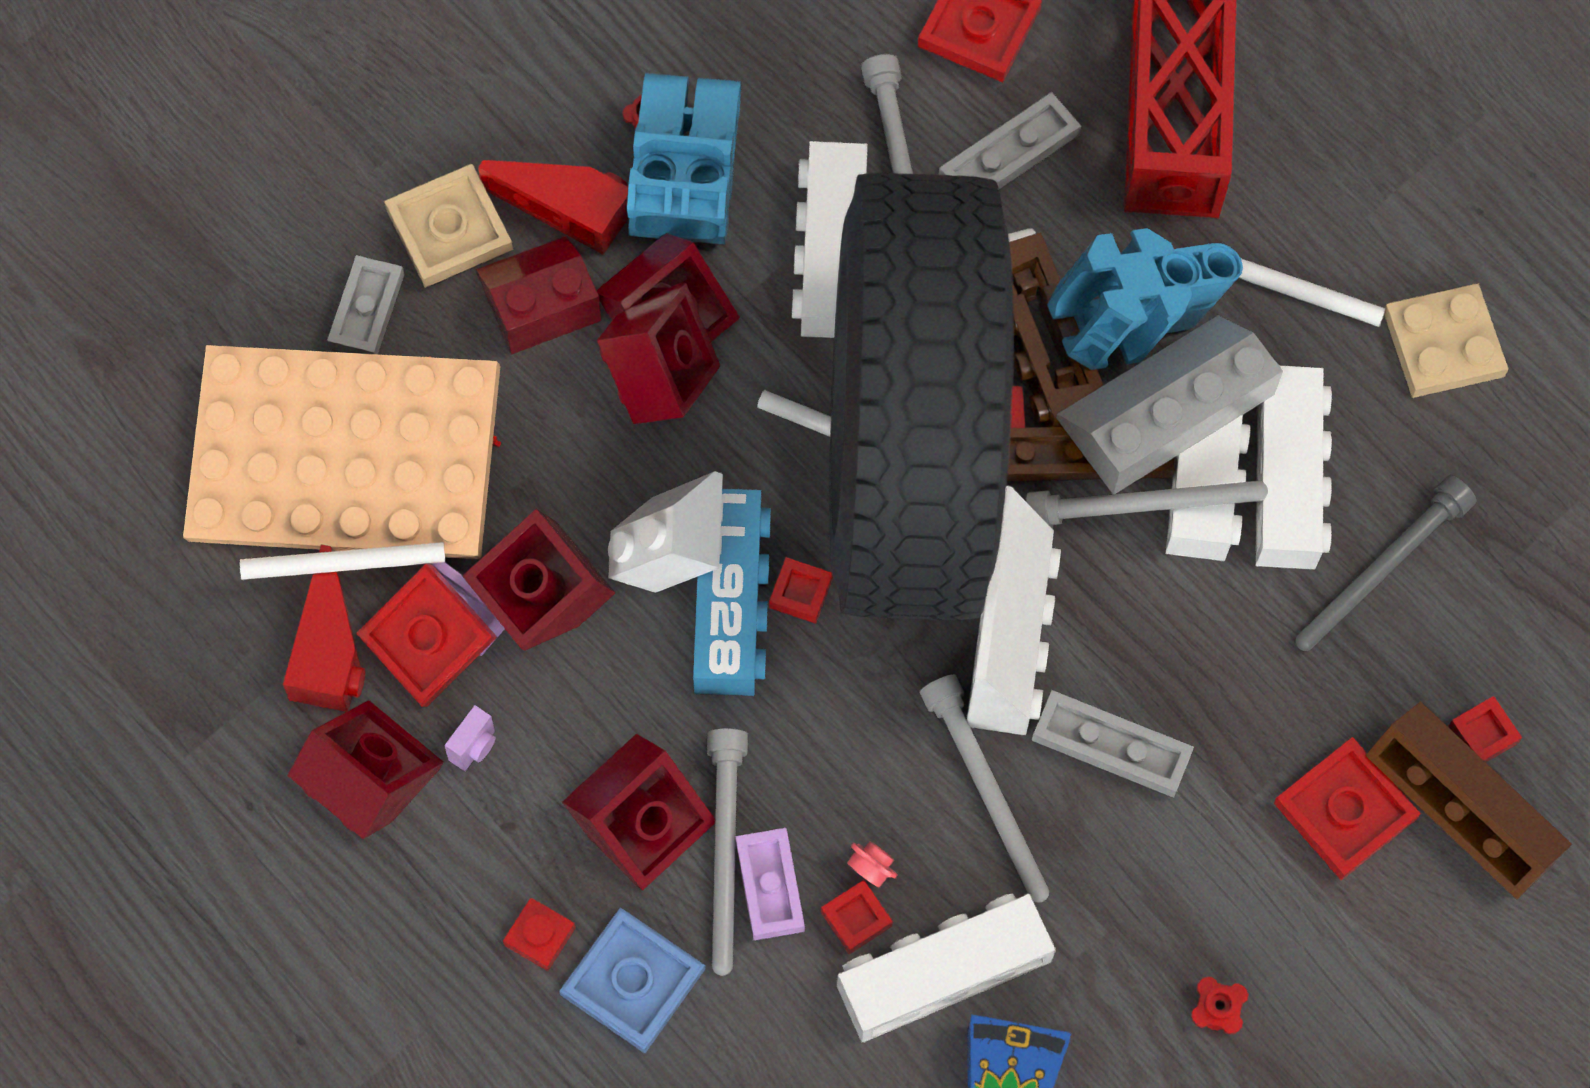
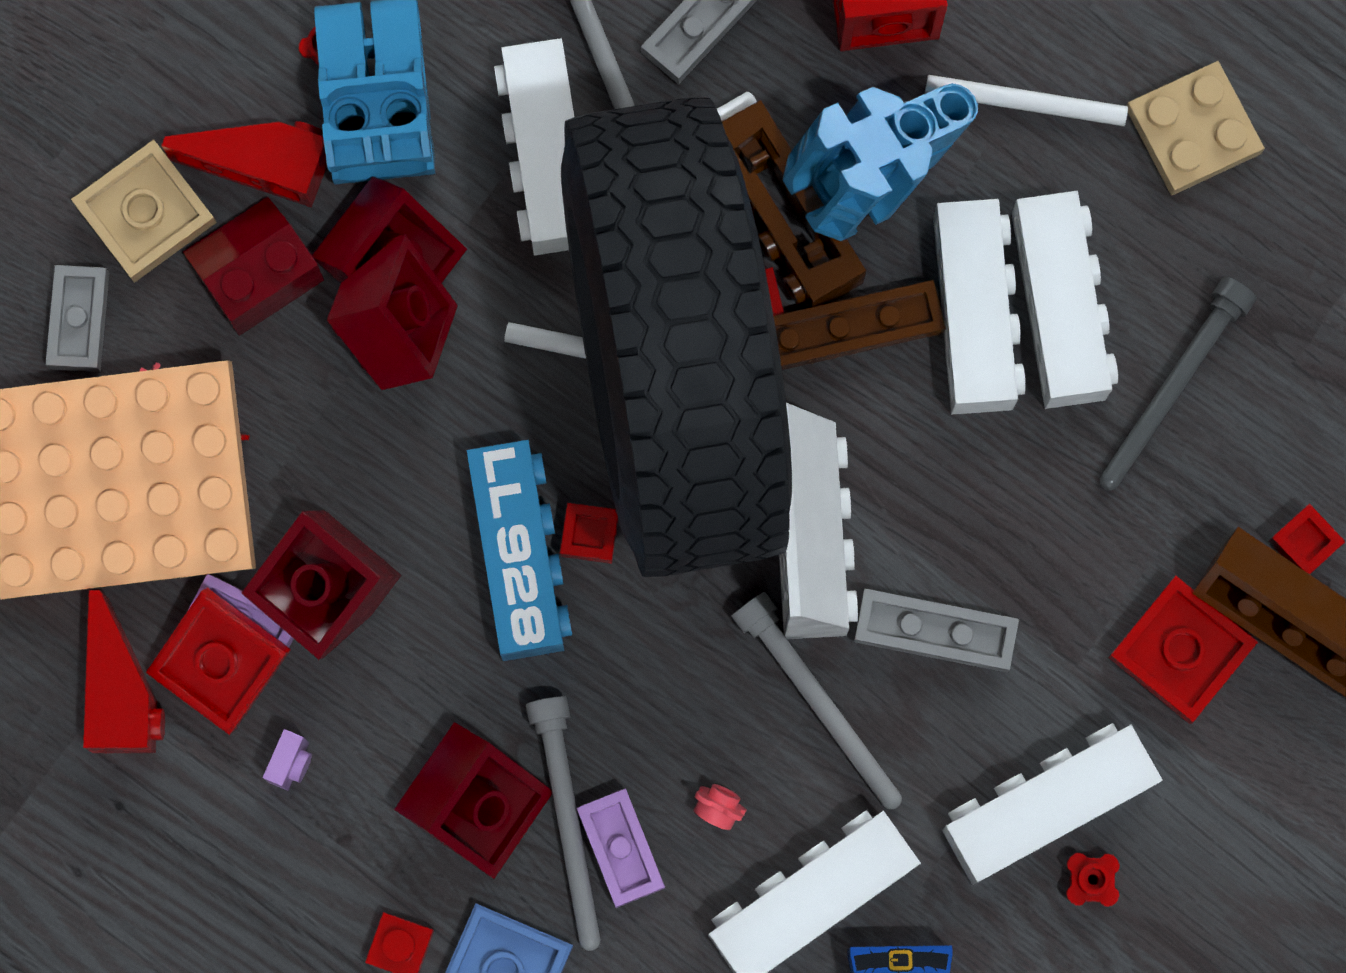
camera: 10 degrees left, 10 degrees up
(342, 560) = (114, 605): white bar -> none
(363, 768) = (185, 813): dark red slope -> none
(669, 537) = (444, 506): white slope -> none
(856, 917) = (714, 864): red plate -> none
(1054, 509) = (826, 396): light grey piece -> none
(1171, 401) = (928, 260): light grey slope -> none
(1192, 924) = (1050, 804): none -> white brick

